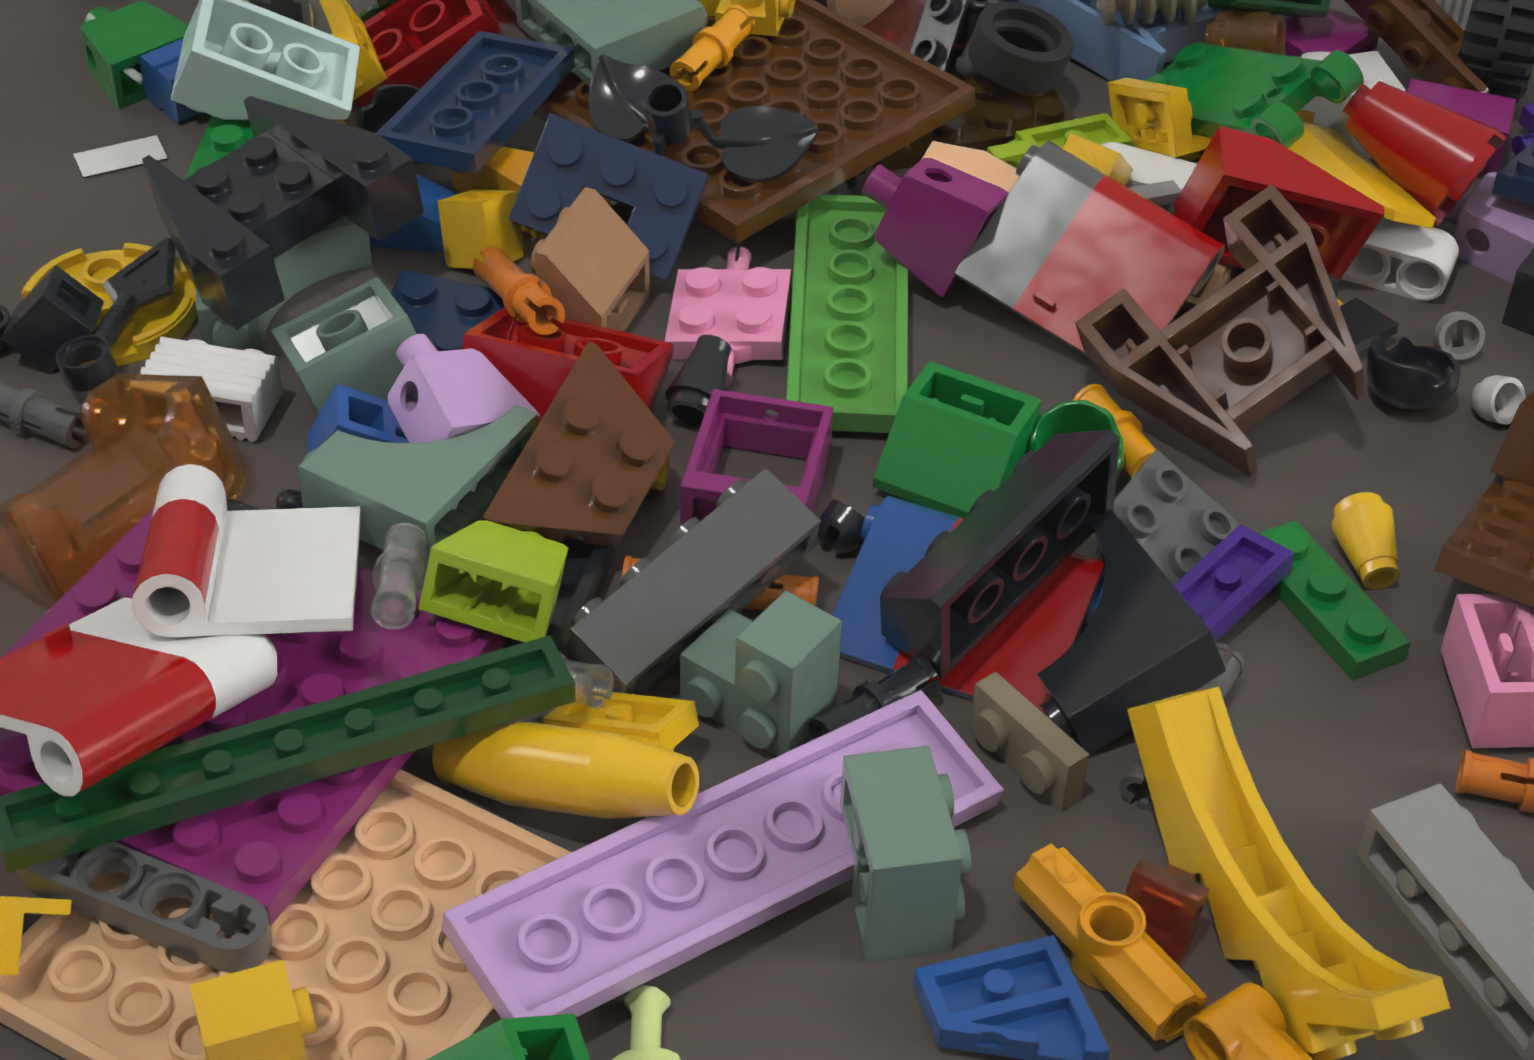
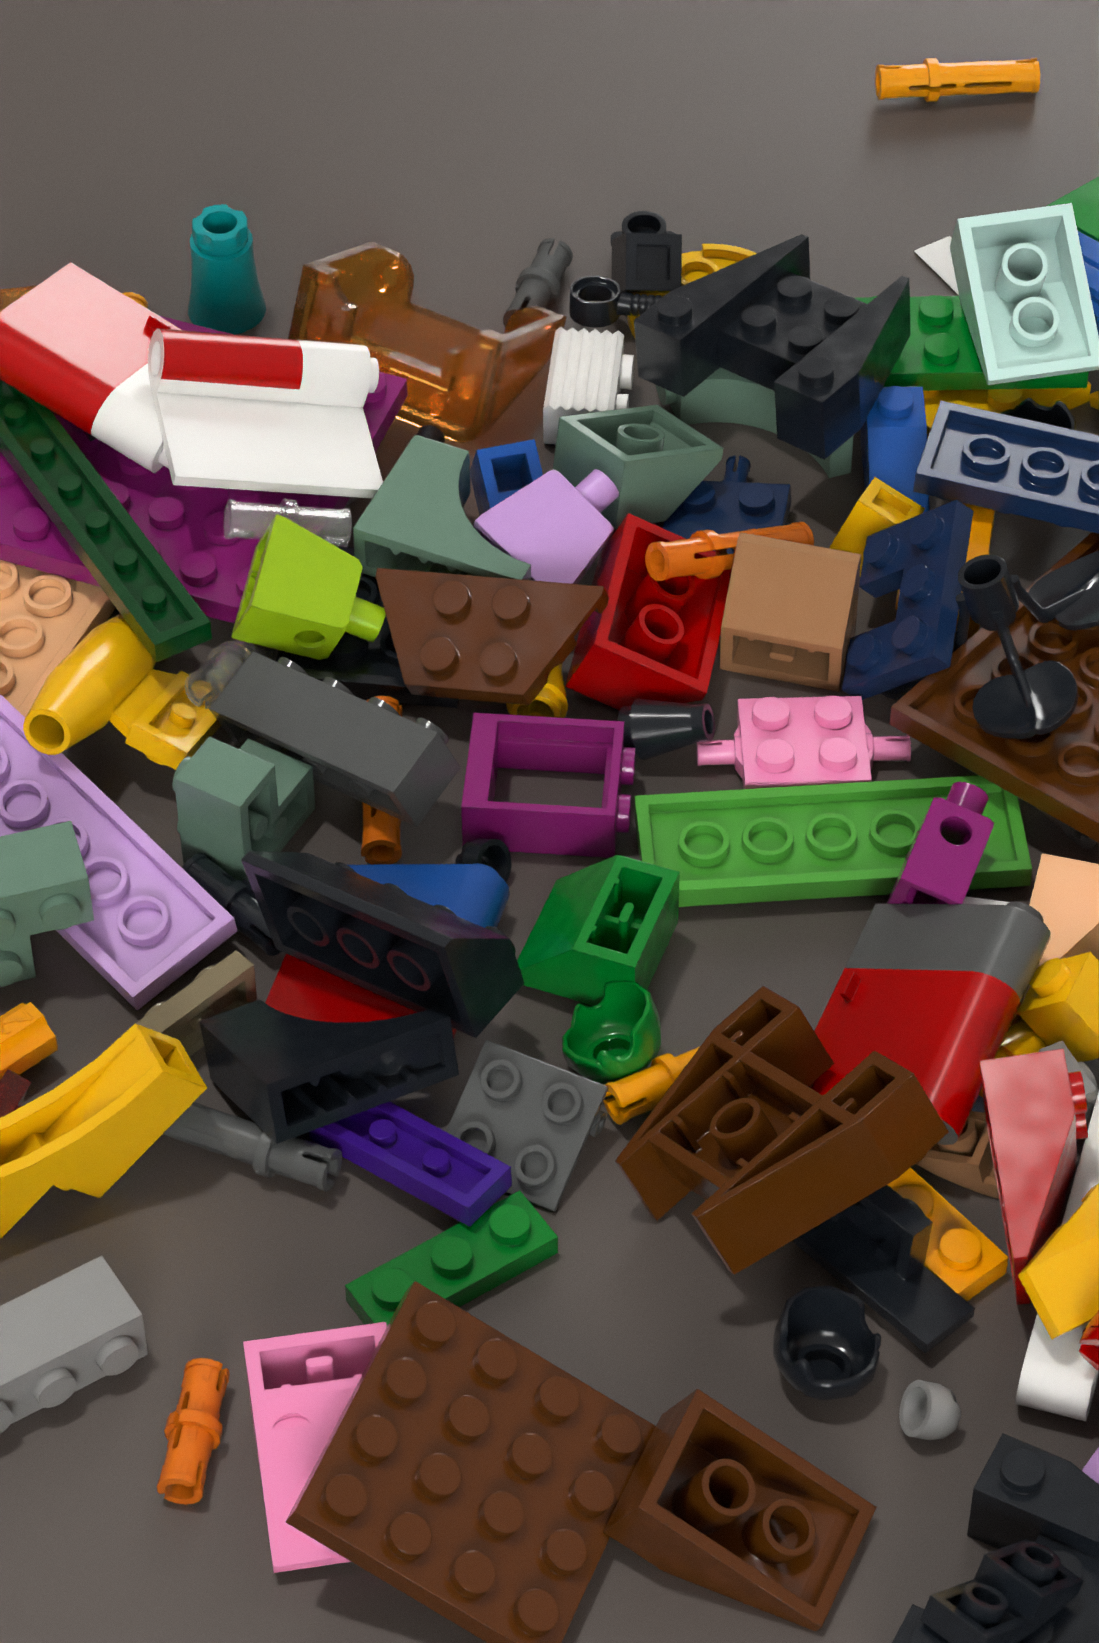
camera: 85 degrees right, 5 degrees up
(1368, 538) = (535, 1301): yellow cone -> none
(1498, 398) = (814, 1433): white hinge -> none

